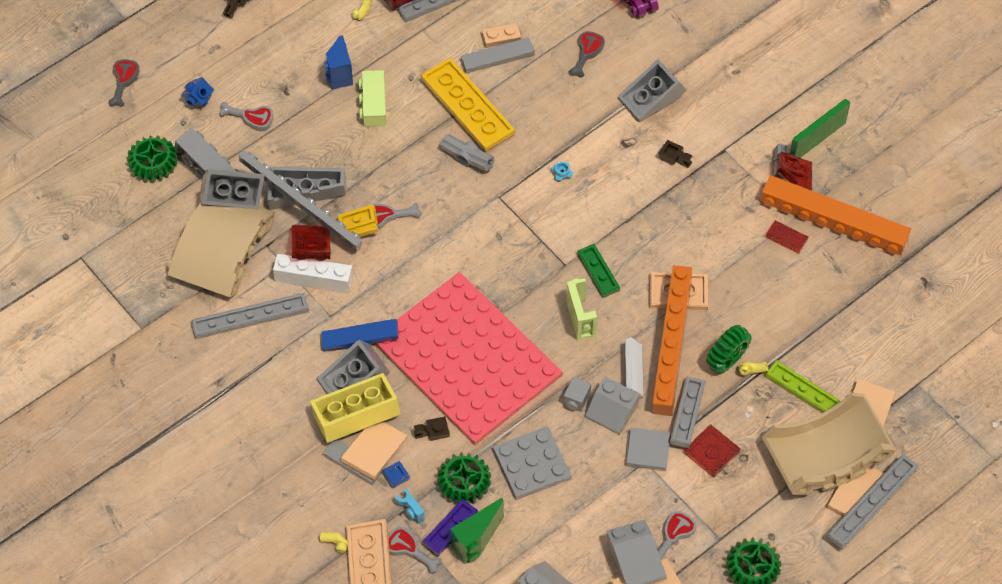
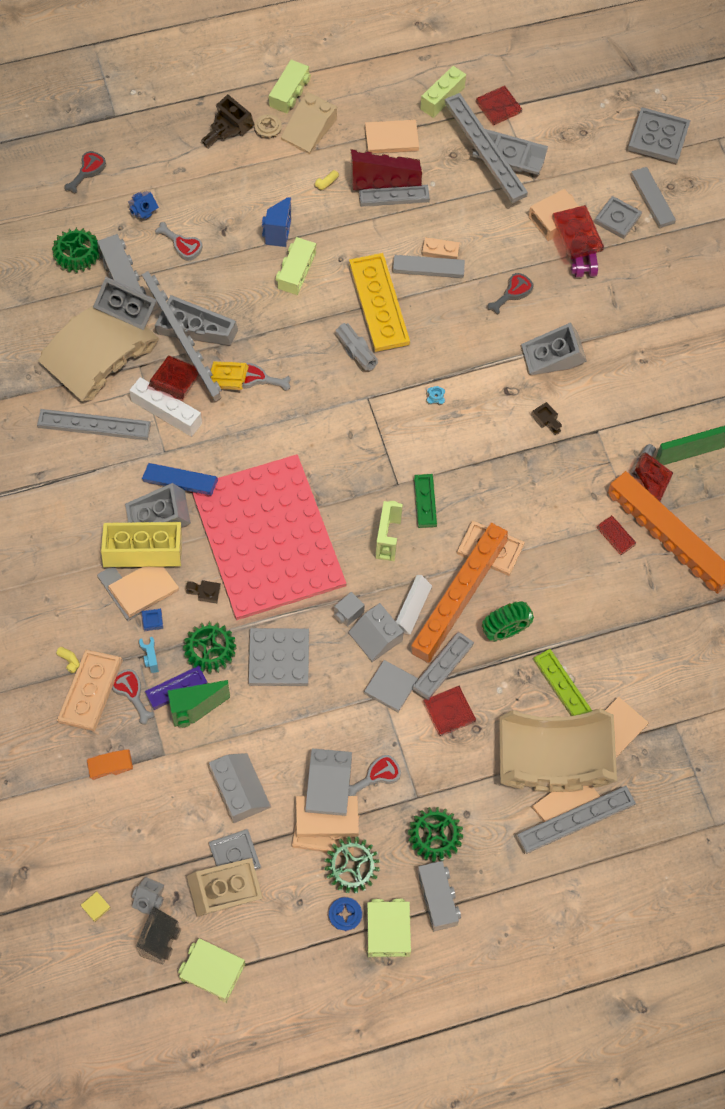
camera: 20 degrees right, 5 degrees up
(751, 368) = (521, 646): light yellow arm -> none

